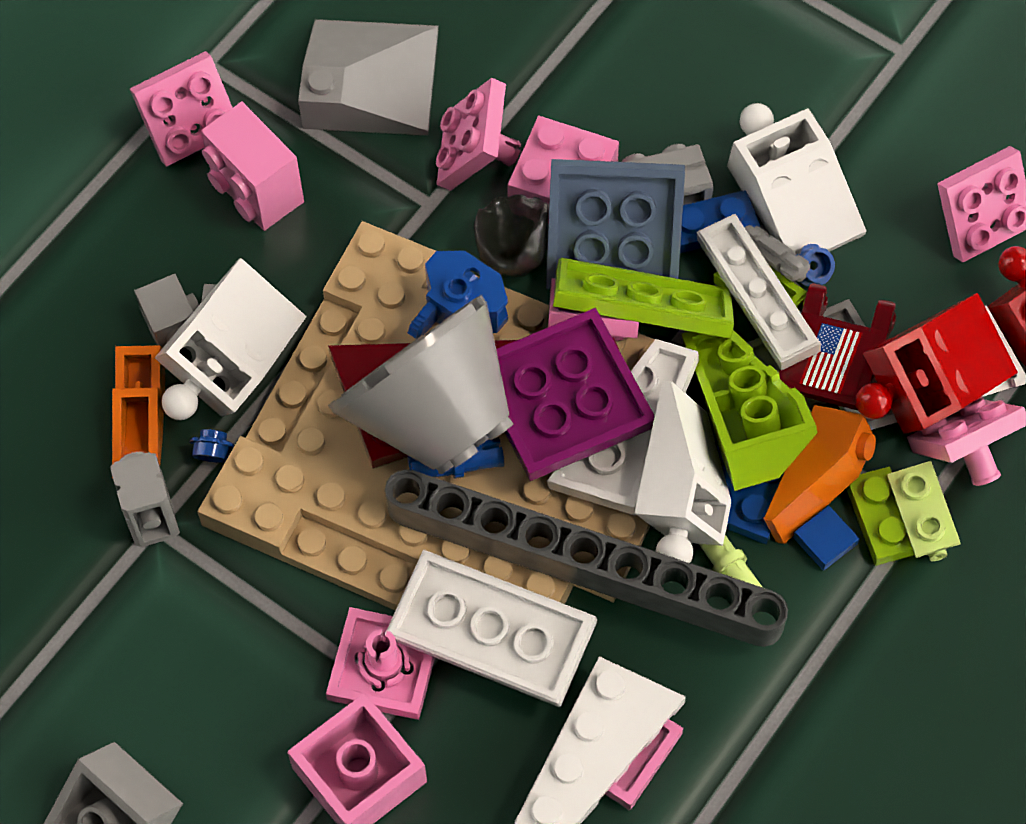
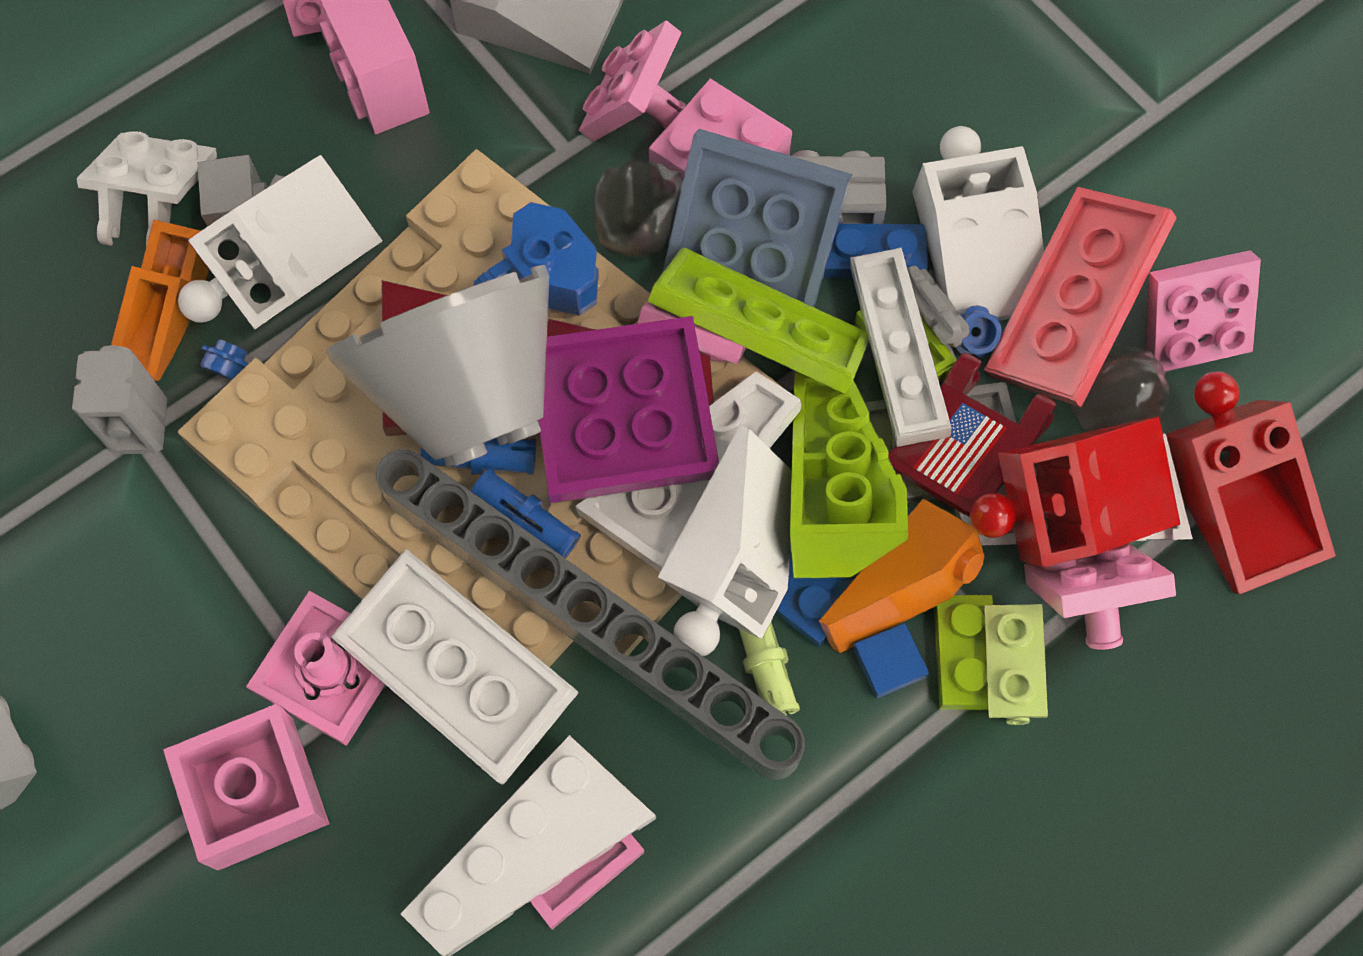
camera: 15 degrees right, 5 degrees up
(88, 305) = (143, 166): none -> white plate
(484, 484) = (498, 492): none -> blue pin
(887, 215) = (1080, 295): none -> coral tile
(936, 279) = (1127, 389): none -> clear smoke hair

